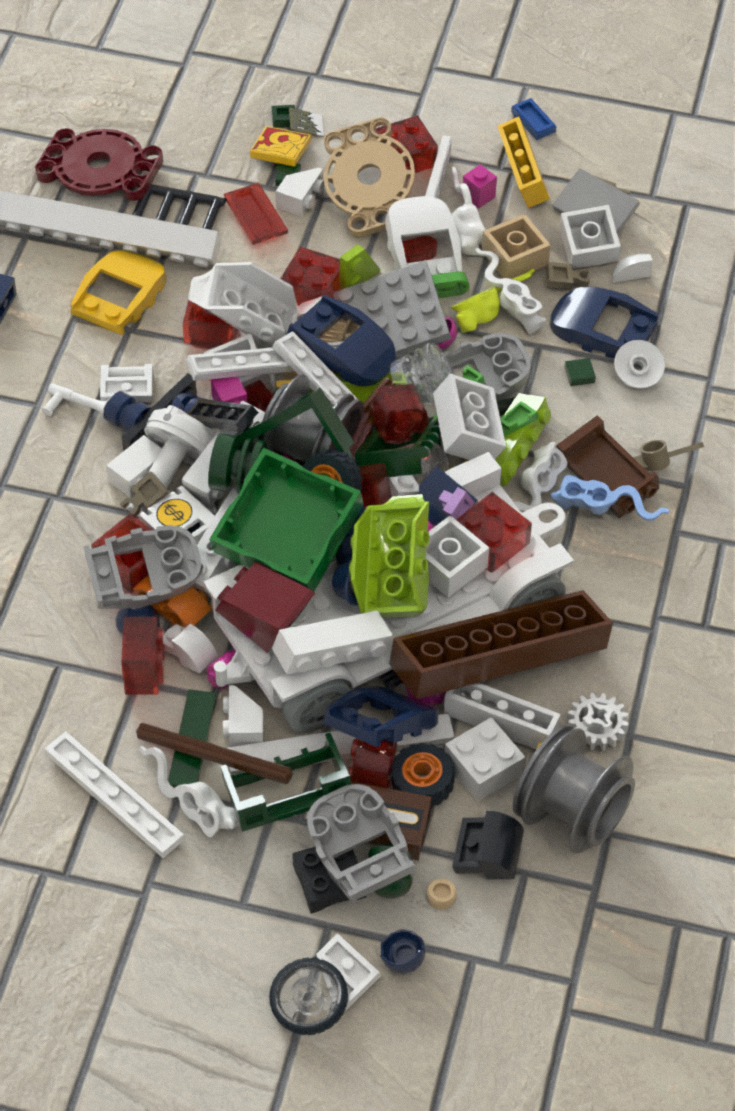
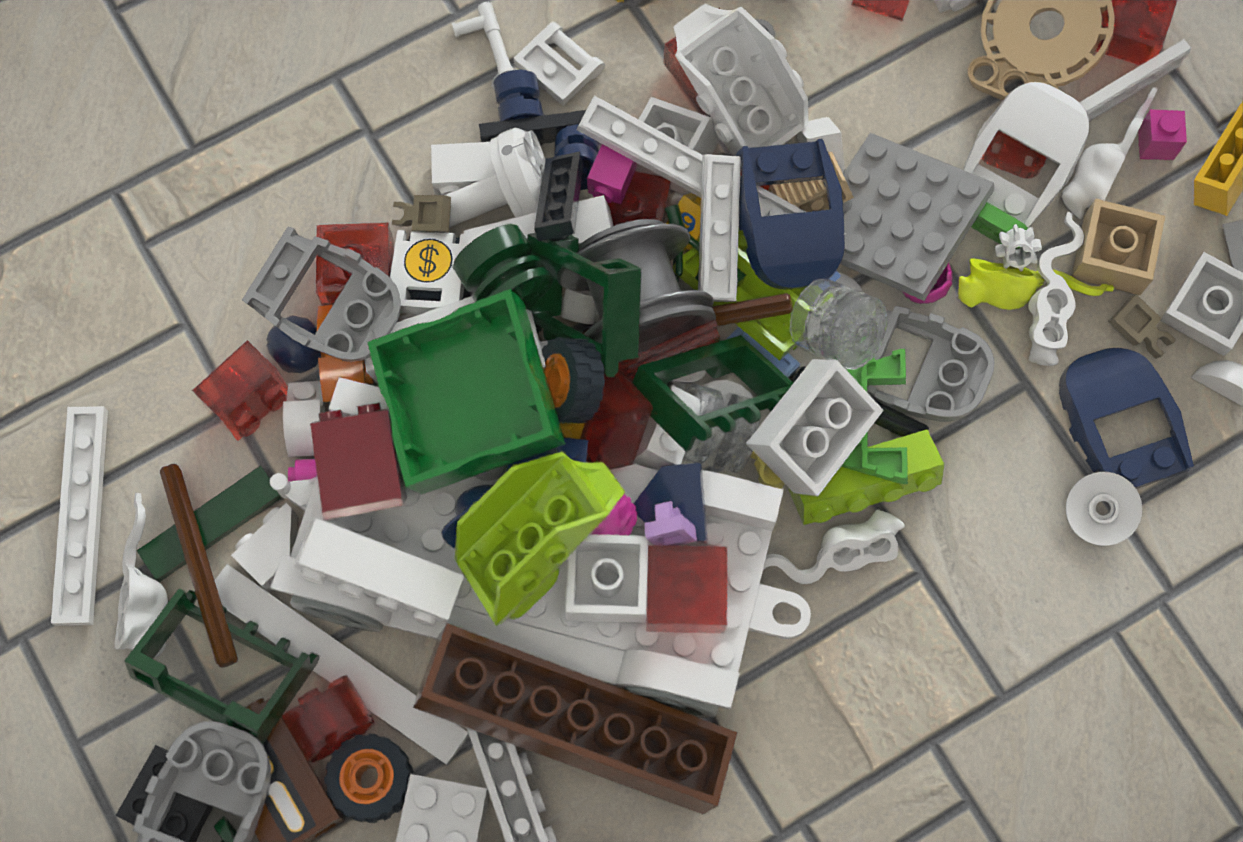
camera: 45 degrees right, 20 degrees up
(312, 275) = (862, 99): clear red brick -> none
(356, 267) = (919, 127): lime wing -> none
(398, 413) = (754, 349): clear red brick -> none
(409, 715) = (333, 694): dark blue slope -> none
(470, 281) = (1016, 238): none -> white gear
(580, 371) = (1033, 456): dark green tile -> none
(597, 497) = (877, 635): light blue animal -> none
(599, 457) = (932, 605): reddish brown panel -> none
(656, 456) = (990, 644): dark tan piece -> none

